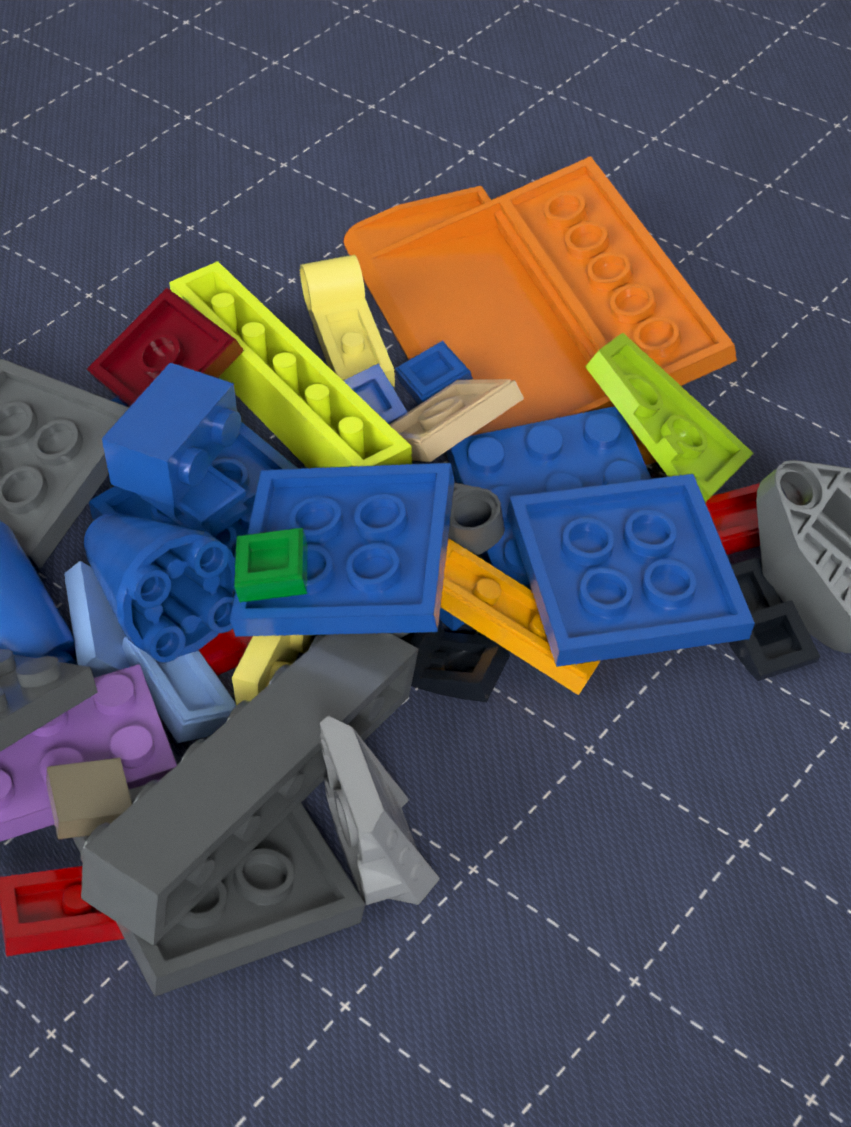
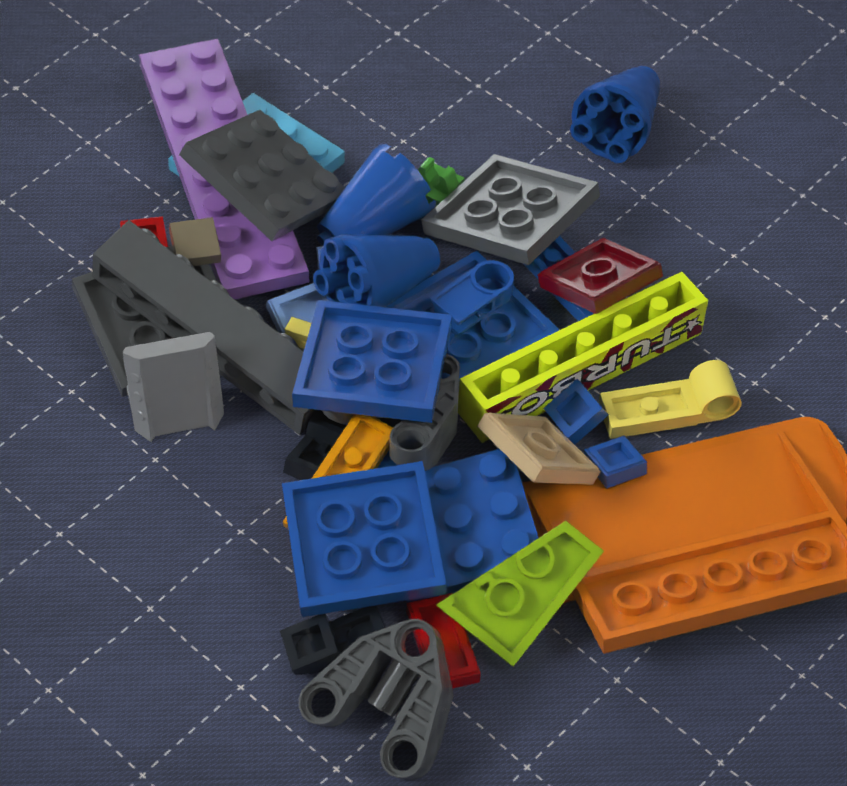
camera: 90 degrees right, 5 degrees up
(172, 434) = (497, 269): blue brick -> none
(271, 565) = (352, 314): green tile -> none

